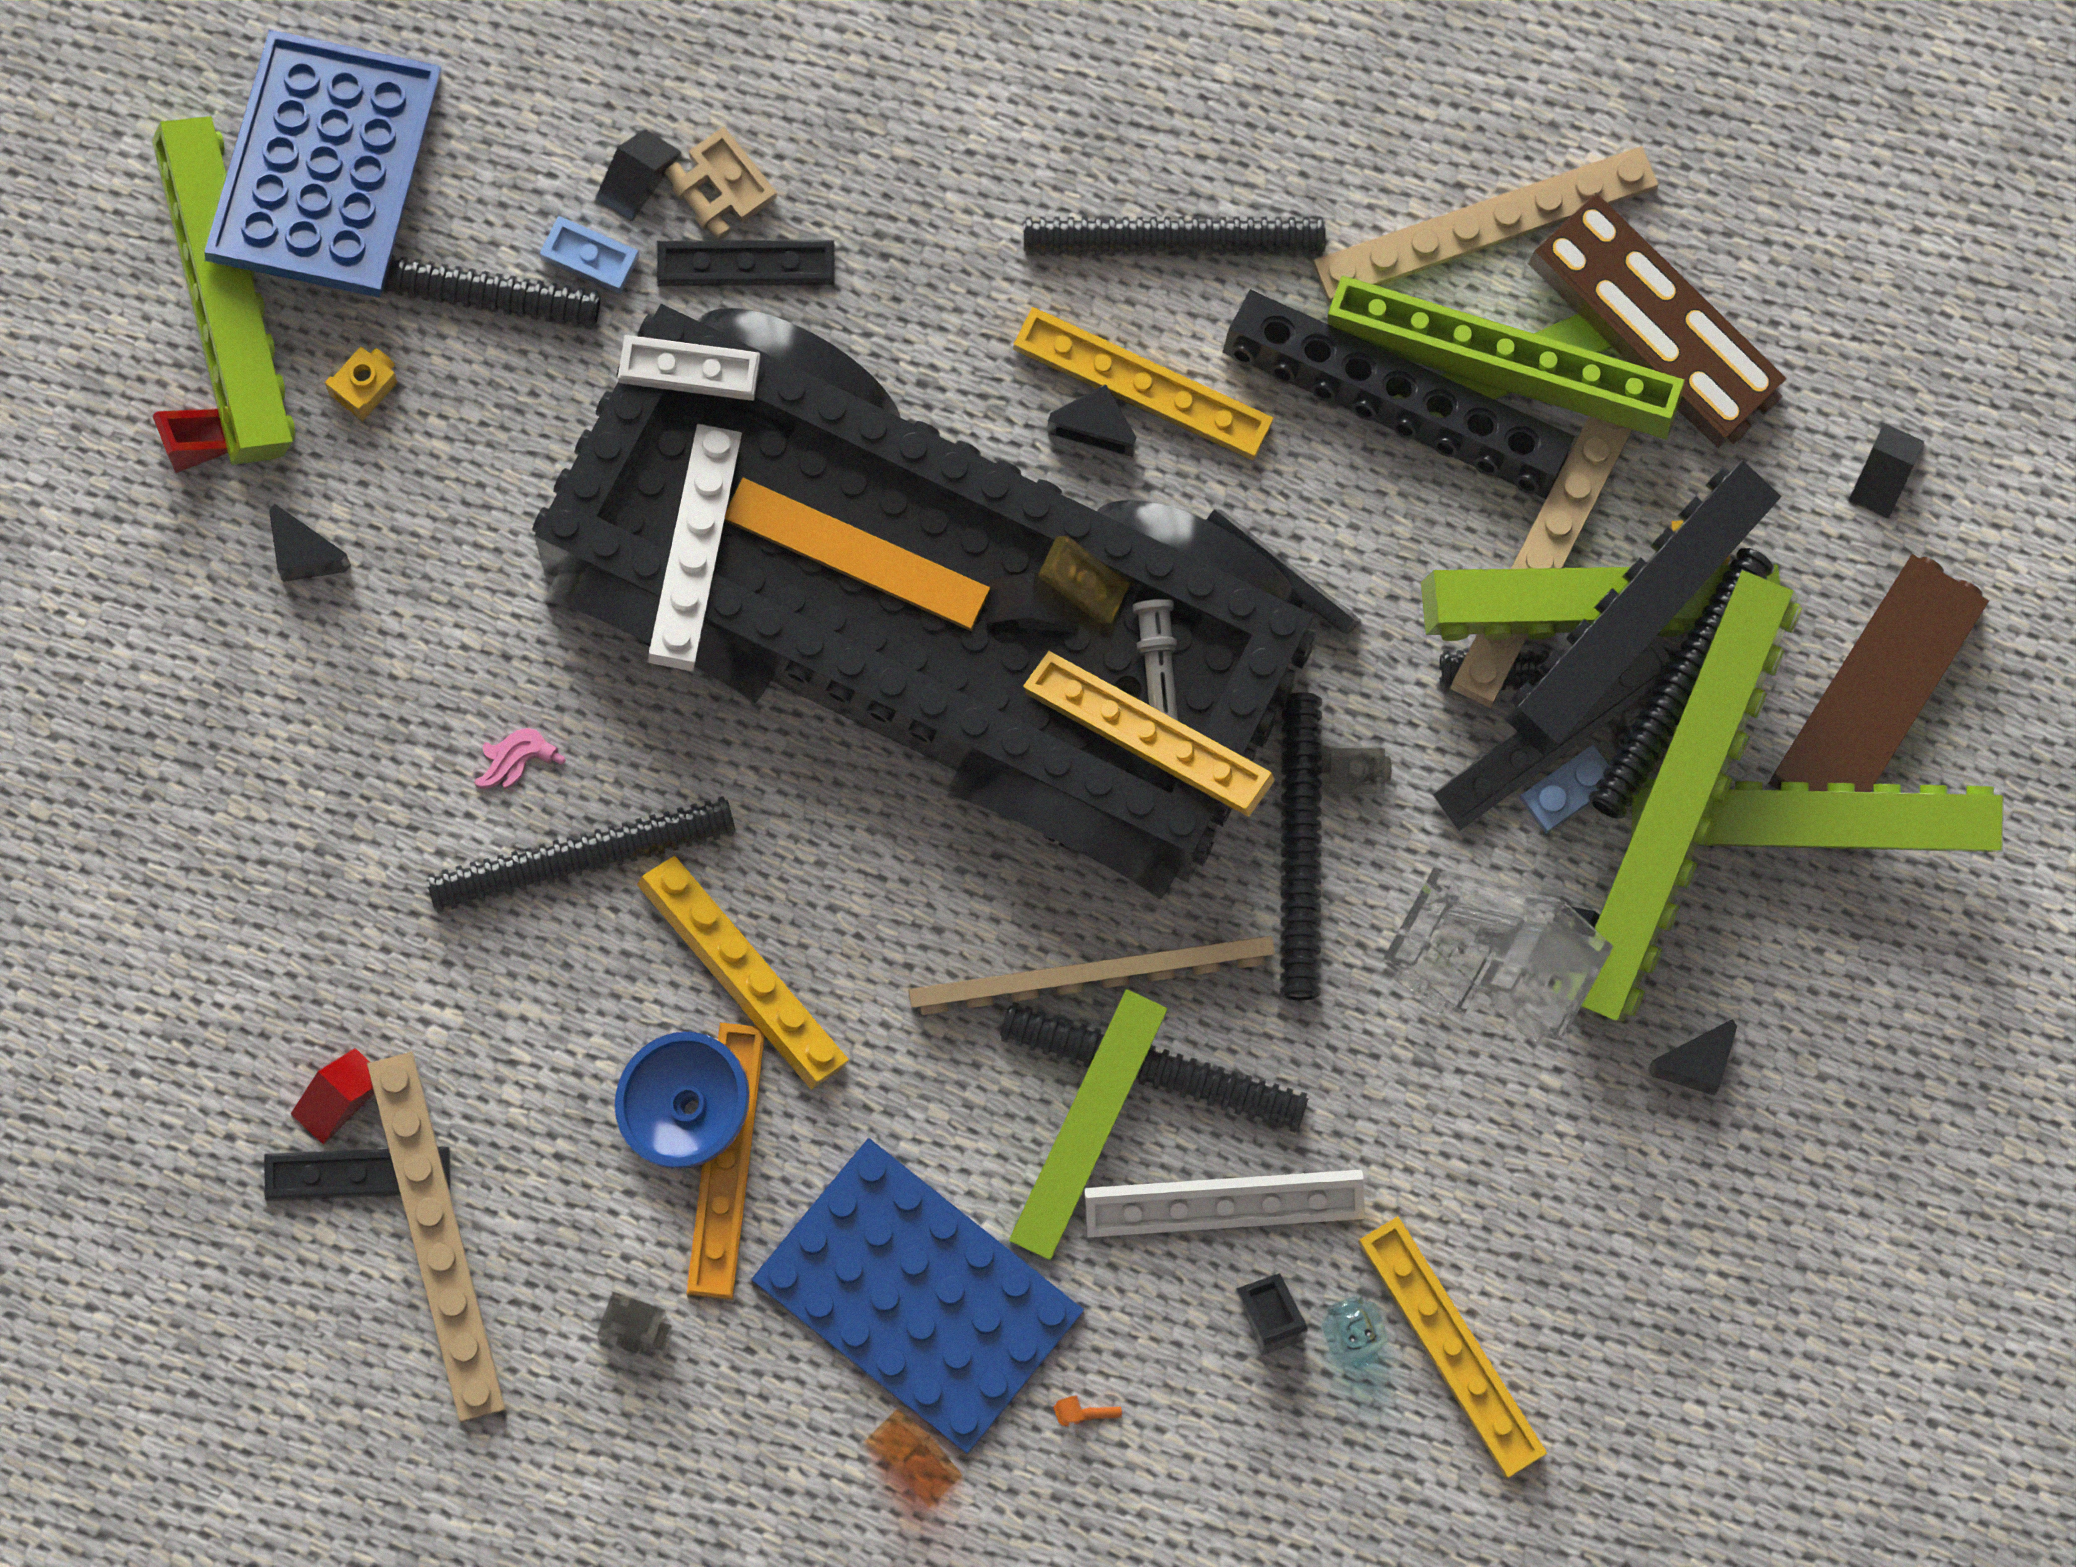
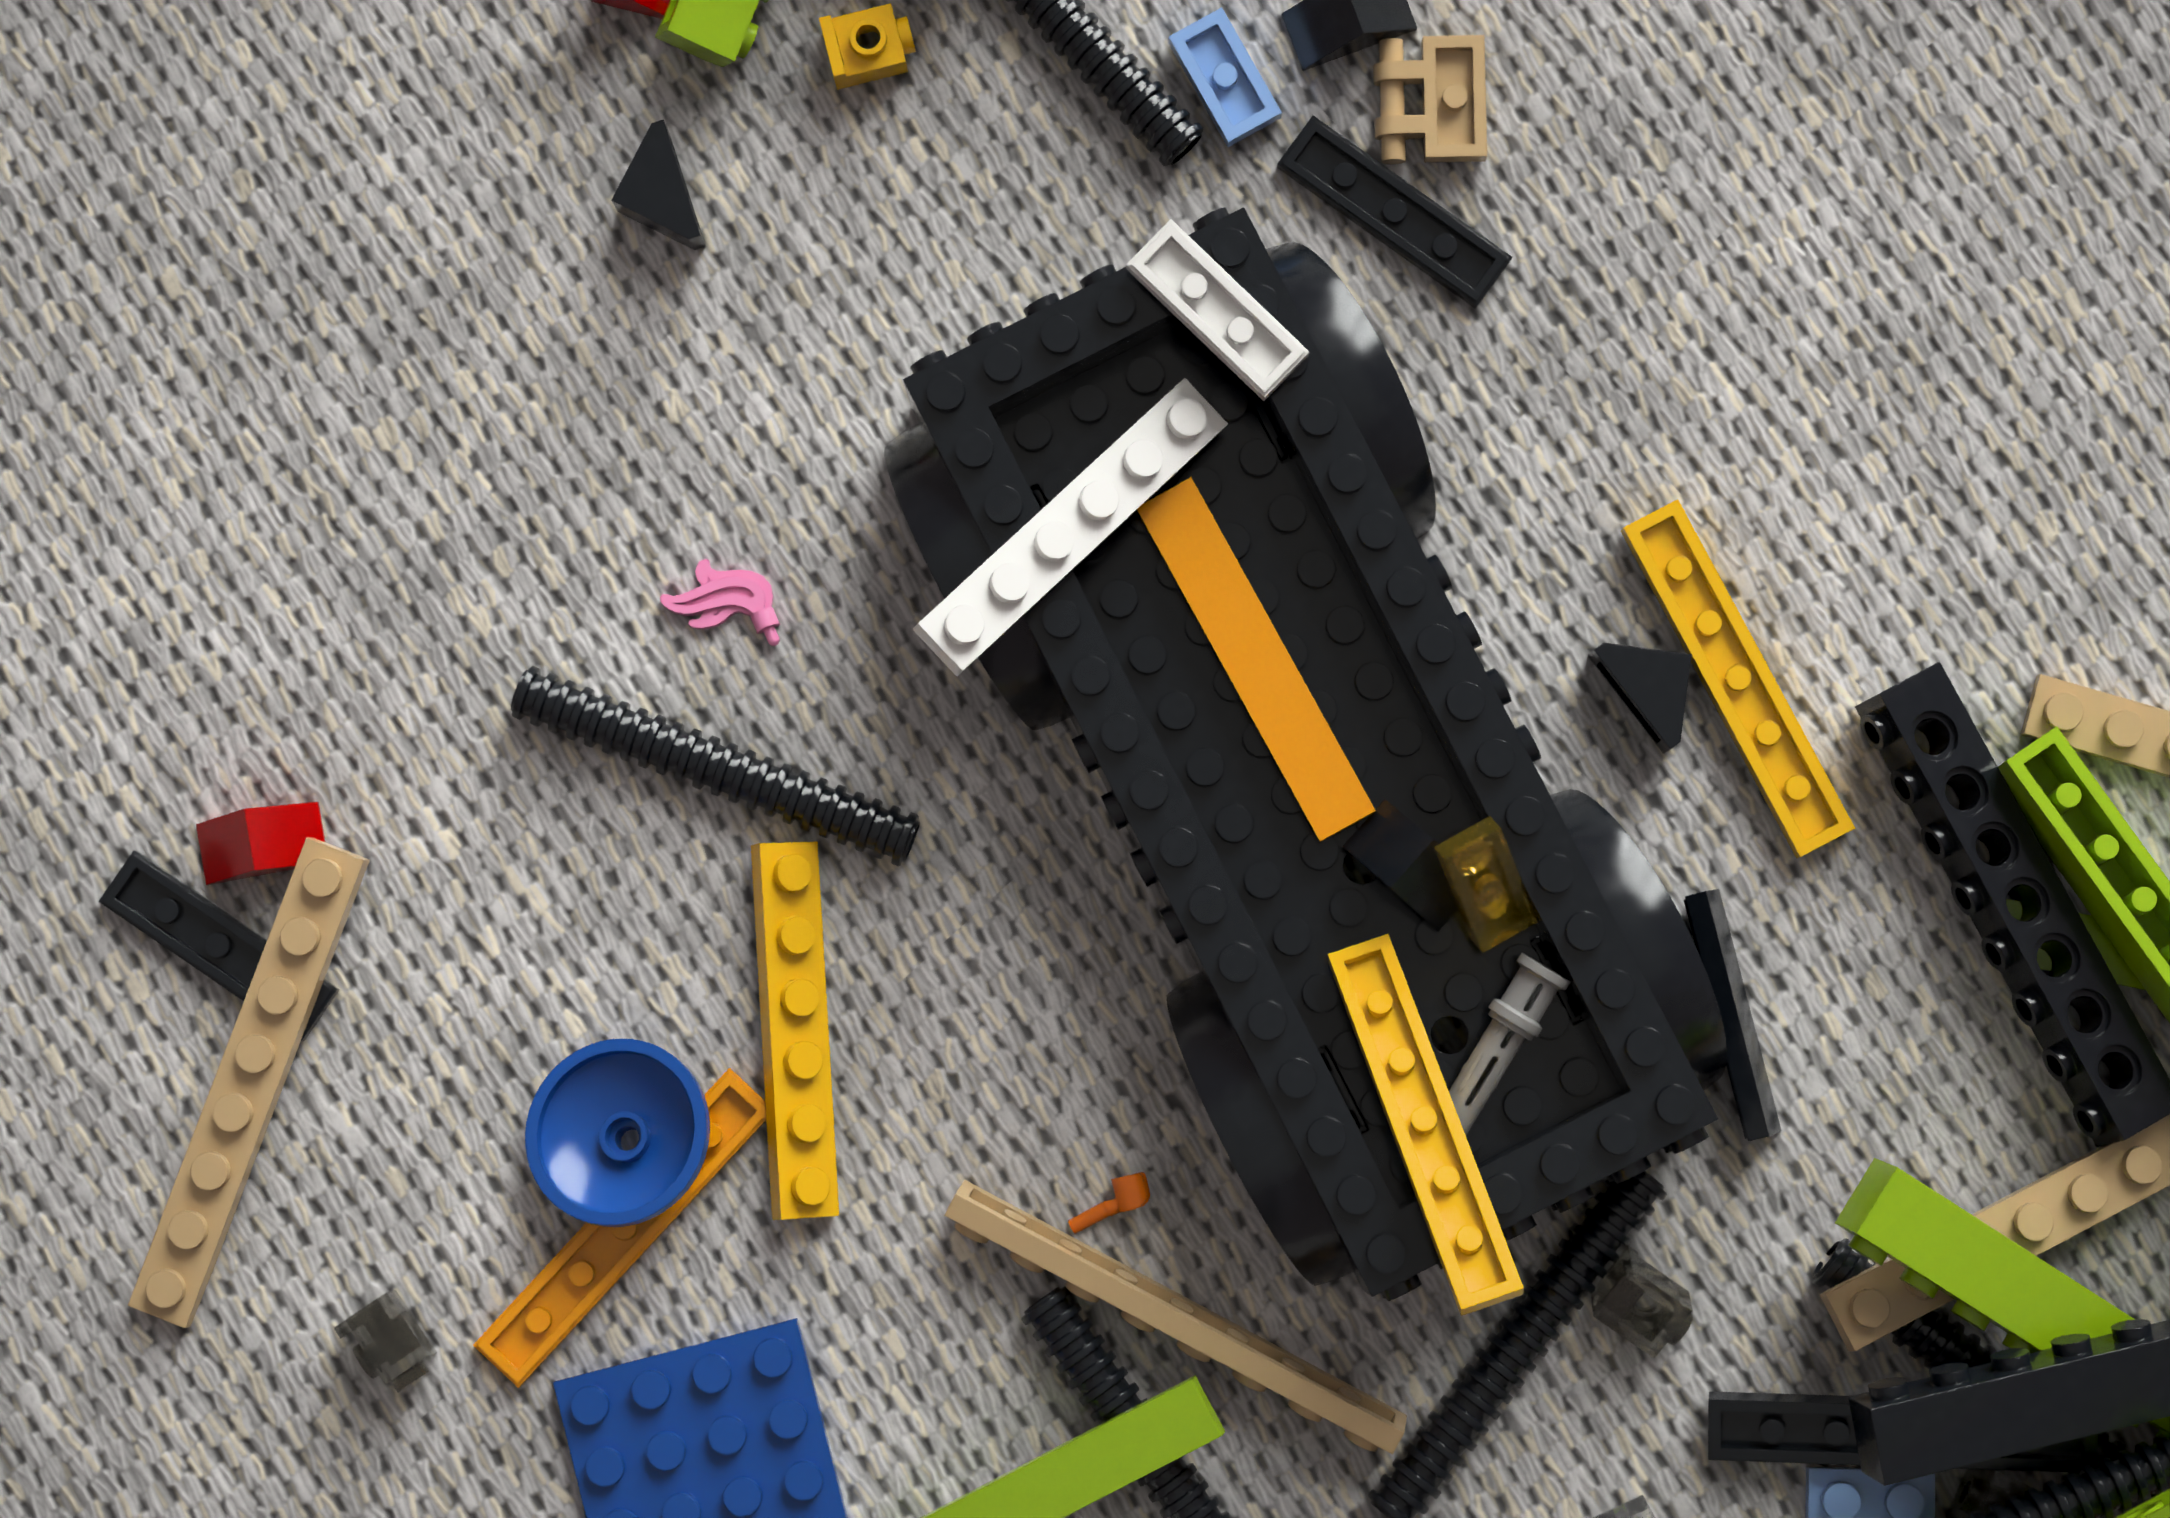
camera: 45 degrees right, 10 degrees up
(1010, 924) = (1130, 1193): none -> orange hand
(1174, 236) = (1903, 532): black piece -> none

